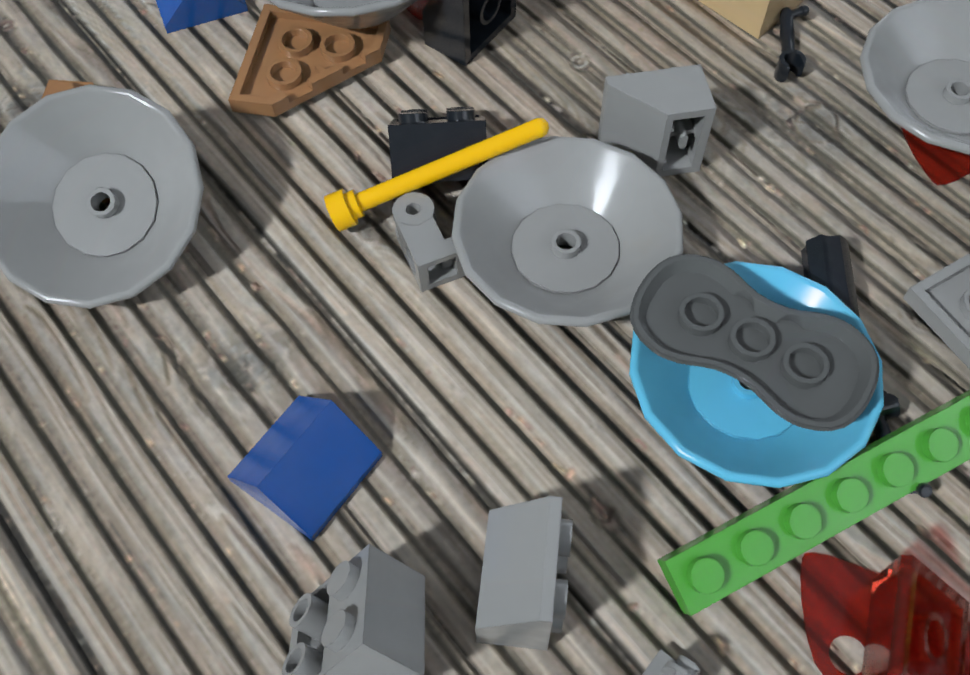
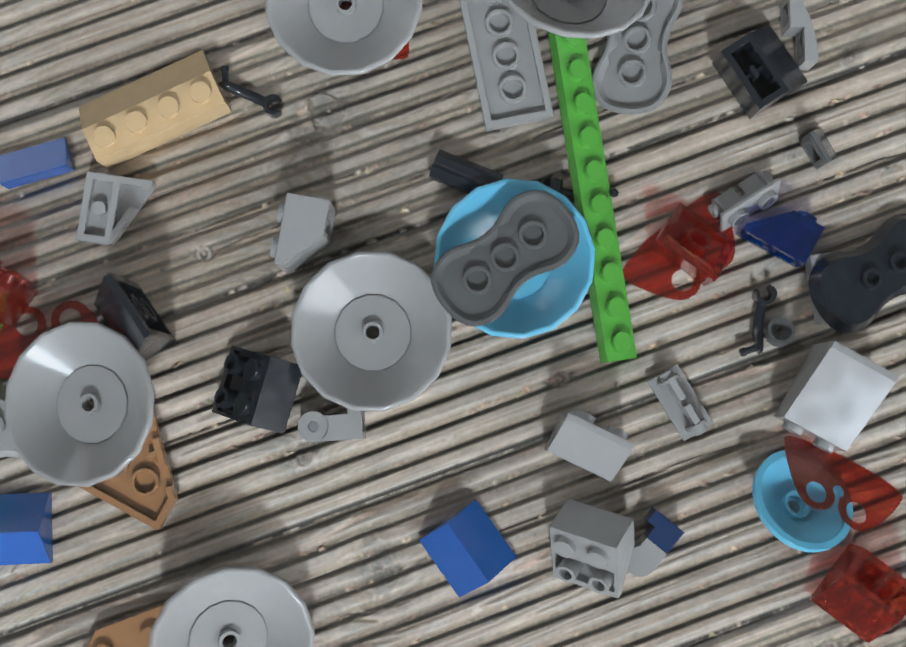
camera: 75 degrees left, 25 degrees up
(349, 206) = (290, 470): yellow piece -> none

